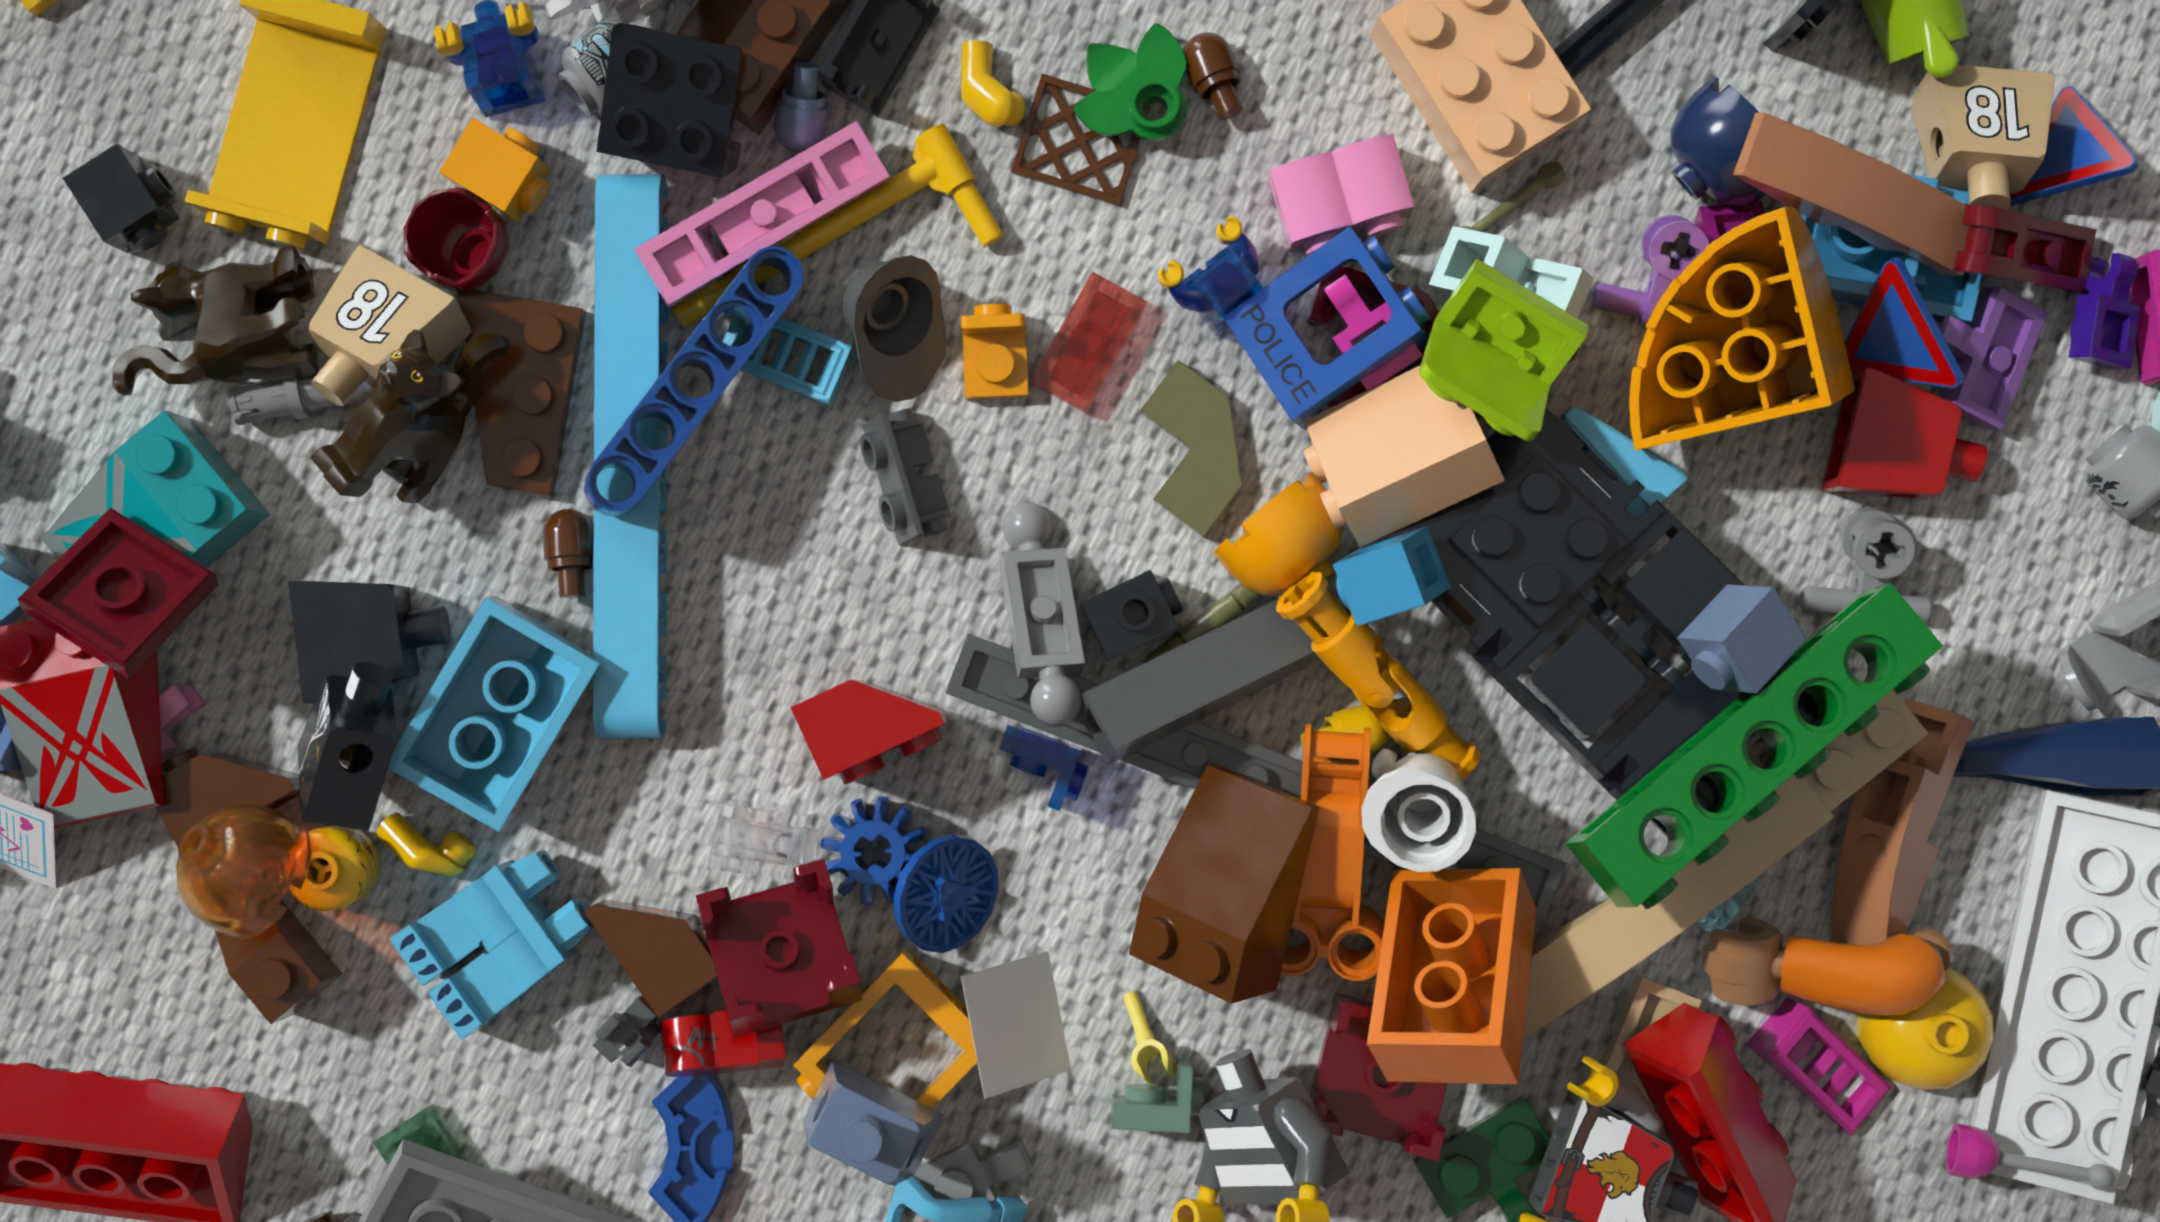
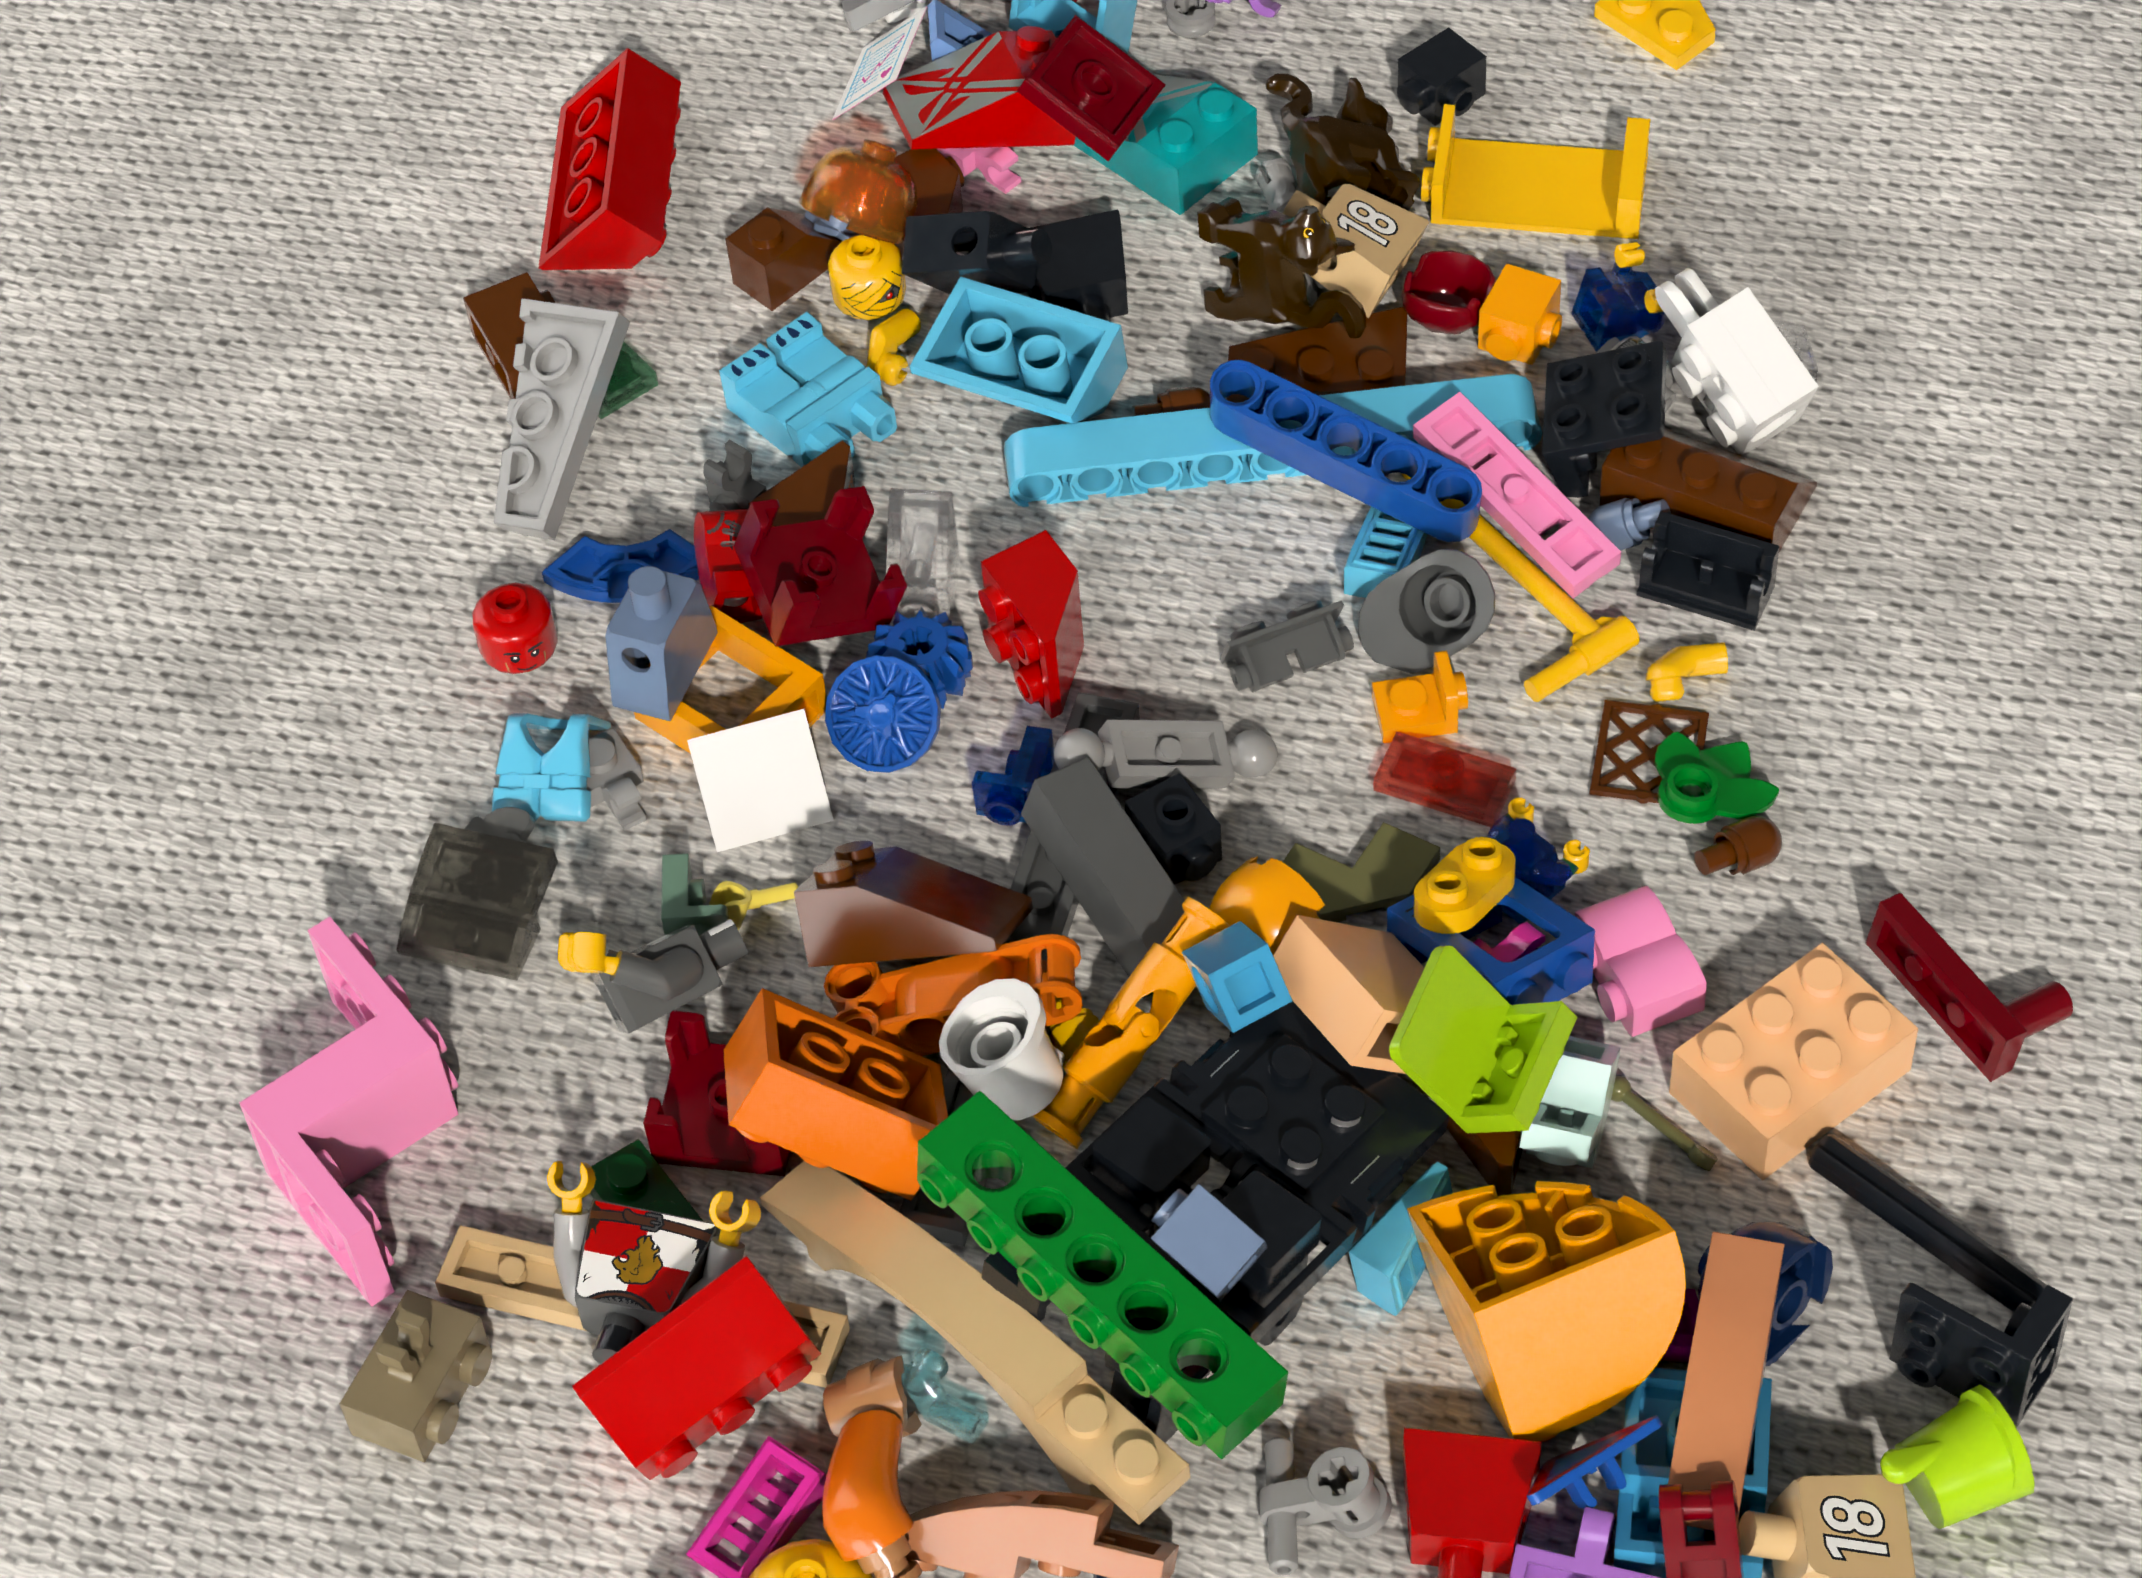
camera: 90 degrees right, 35 degrees down
(1279, 339) = (1464, 886): none -> yellow plate

